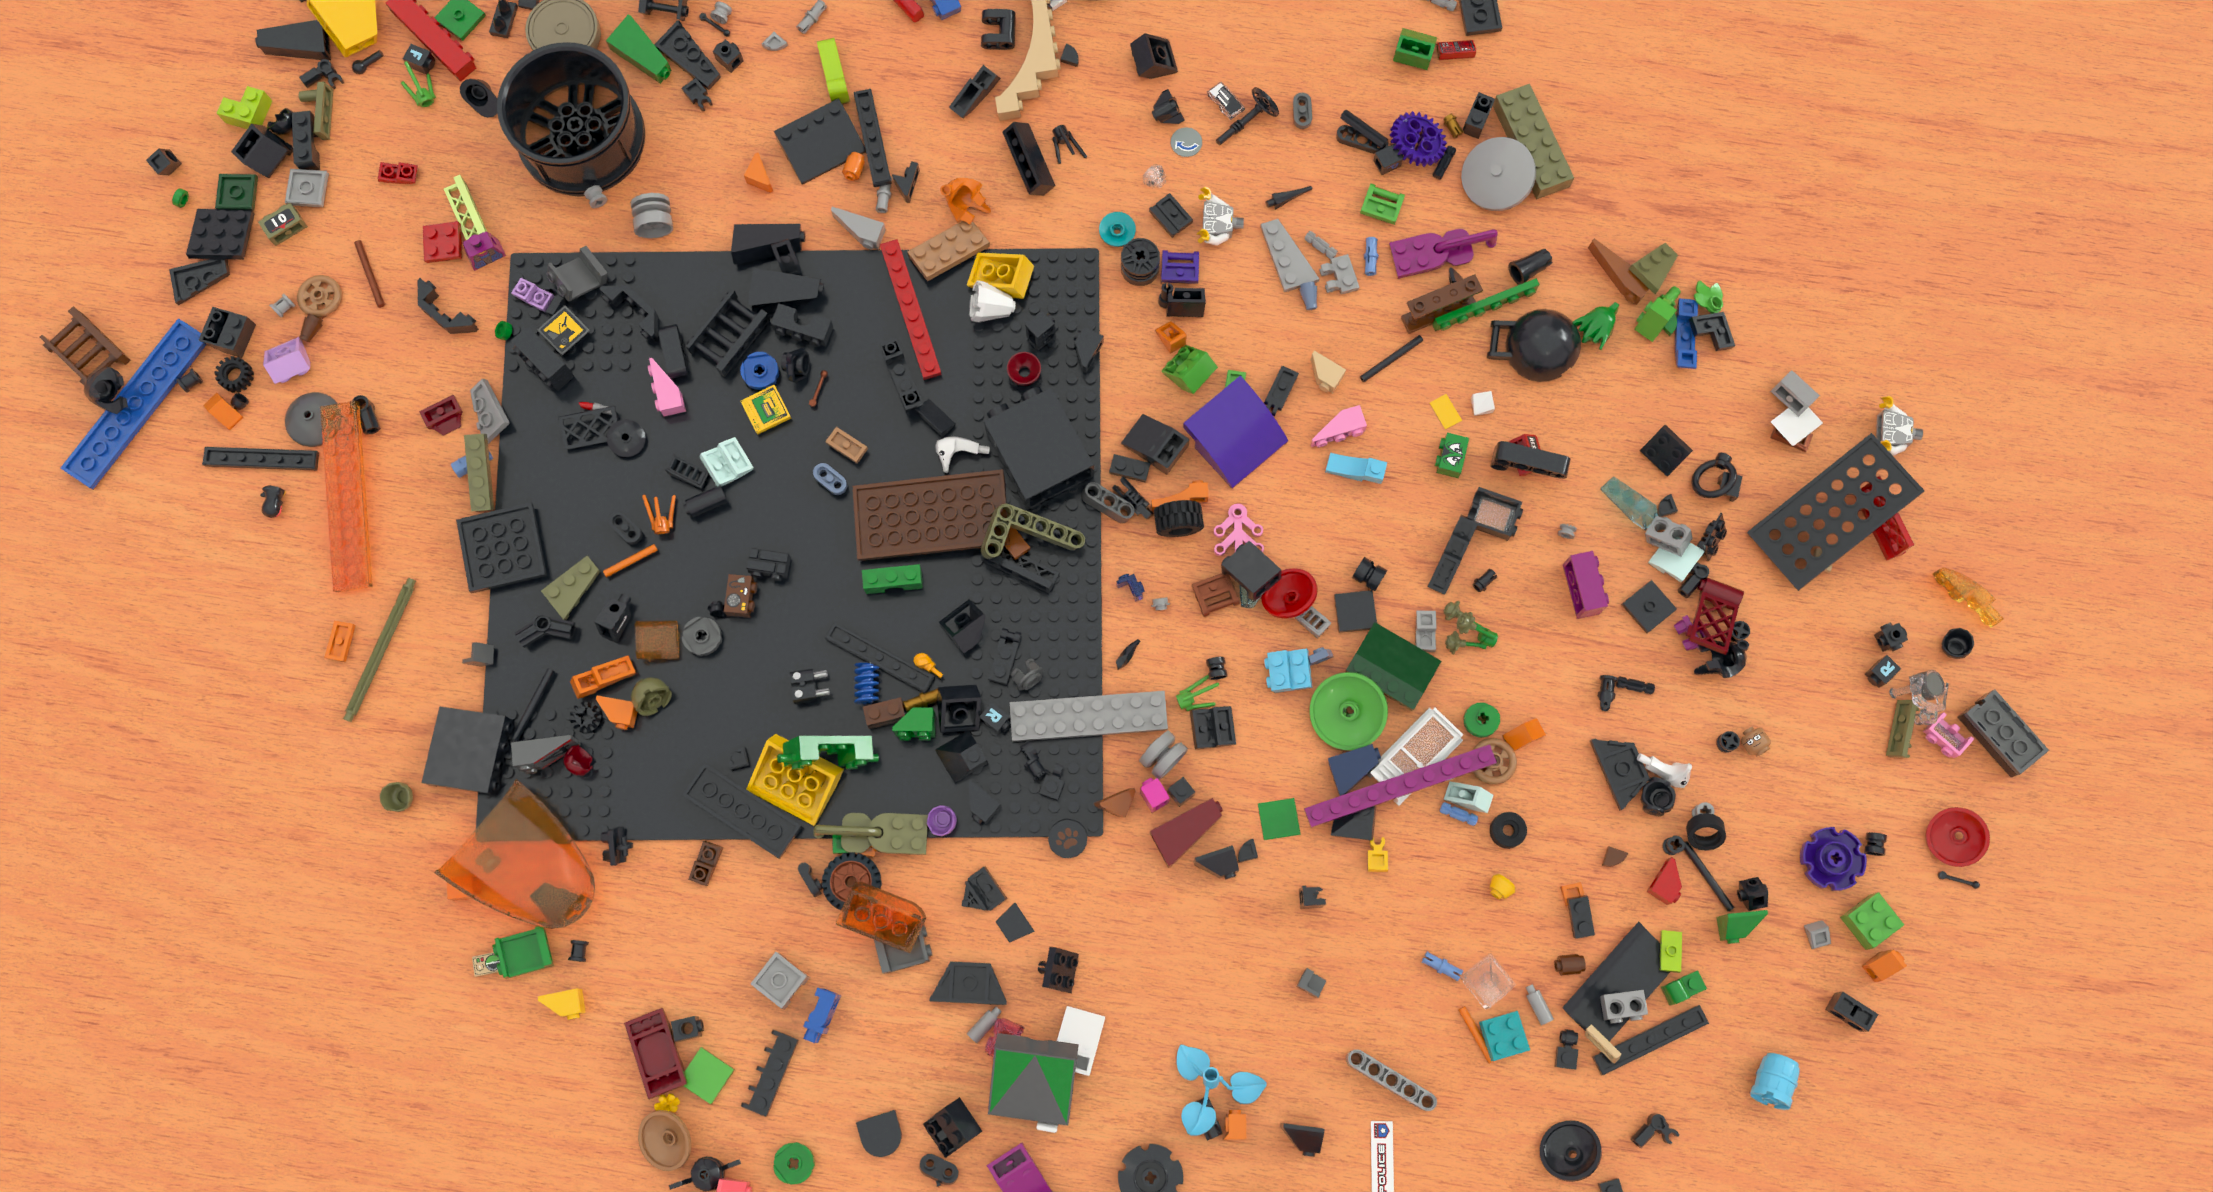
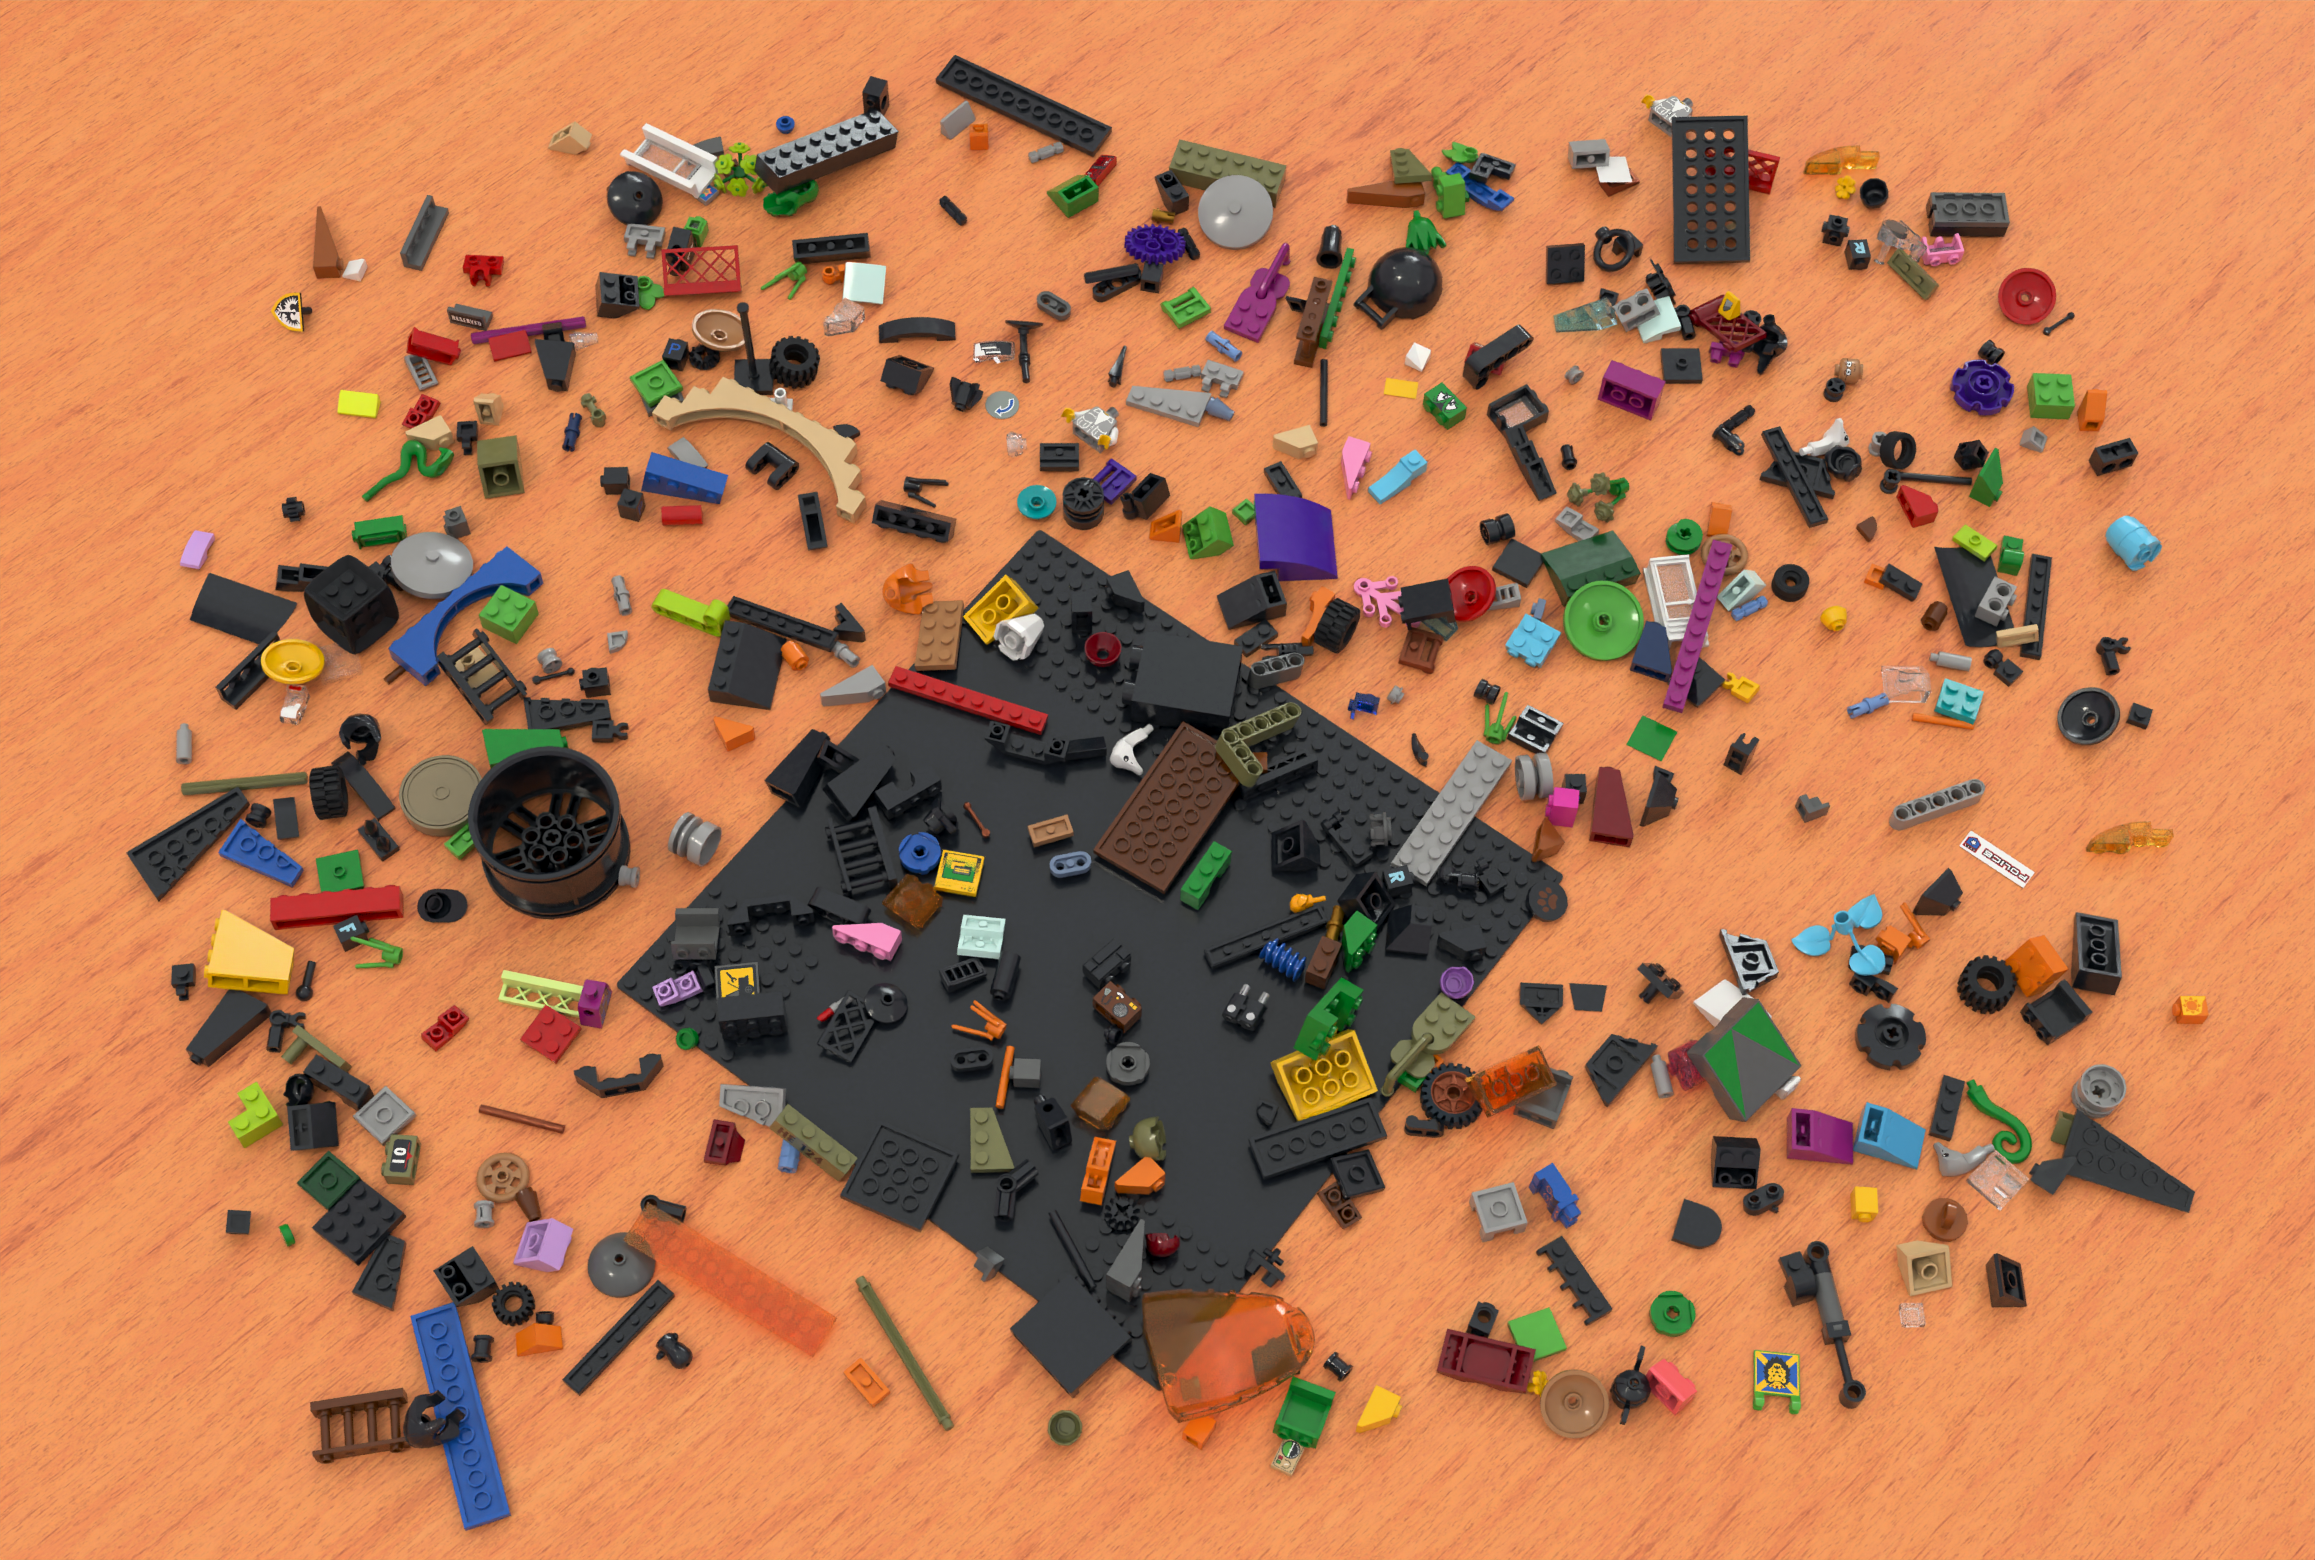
camera: 55 degrees left, 15 degrees down
(641, 572) = (1026, 1073): none -> dark grey brick
(718, 395) = (913, 900): none -> clear orange slope
(737, 858) = (1356, 1174): none -> black plate
(1132, 1026) = (1749, 960): none -> wing
(1187, 1144) = (1881, 988): none -> black slope
(1201, 34) = (917, 327): none -> black slope
(1257, 1142) = (1918, 936): none -> orange plant
(1610, 767) = (1794, 477): none -> black tile
(1732, 606) = (1730, 306): none -> yellow slope
(1944, 617) = (1845, 187): none -> yellow plant

